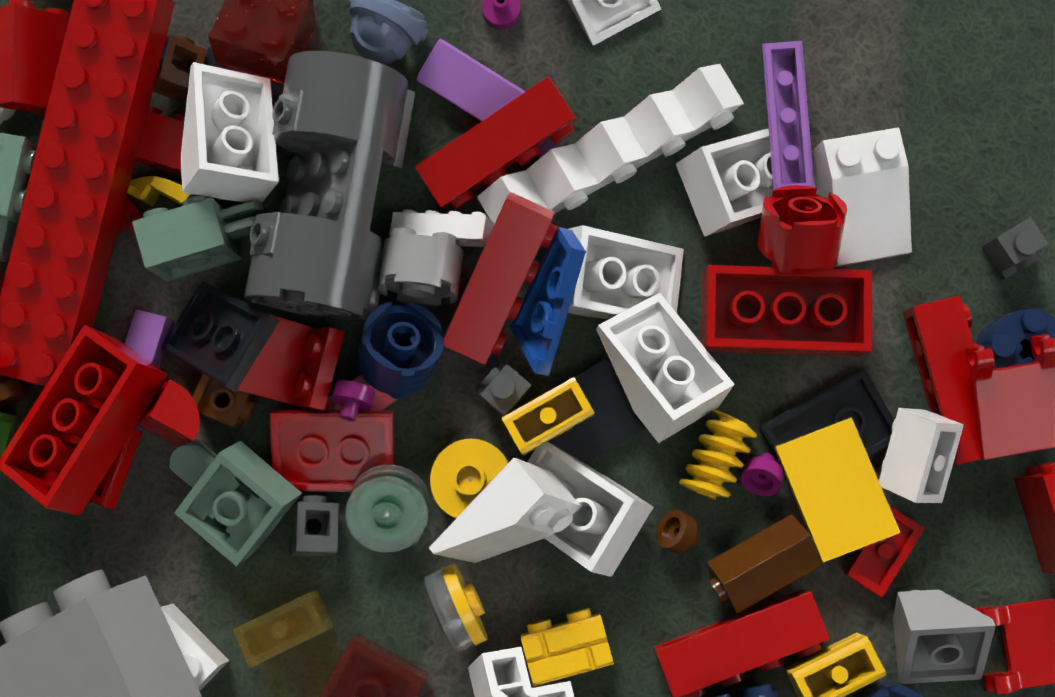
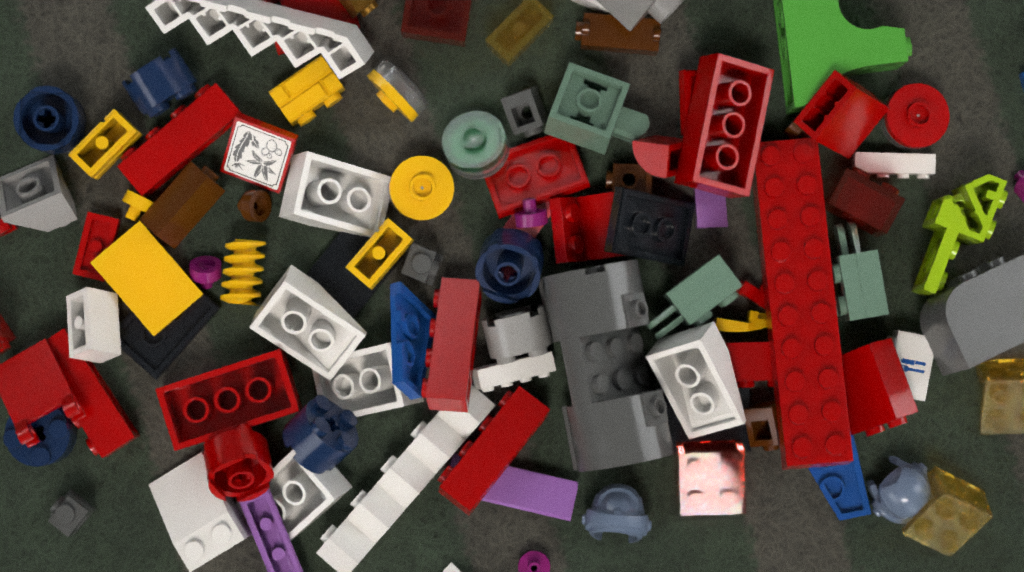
camera: 160 degrees right, 5 degrees up
(171, 579) = (607, 34): none -> reddish brown brick
(512, 511) = (378, 176): white slope -> none
(650, 593) = (259, 153): none -> tile
(691, 229) = (321, 435): none -> dark blue brick
(819, 584) = (137, 204): none -> yellow tile

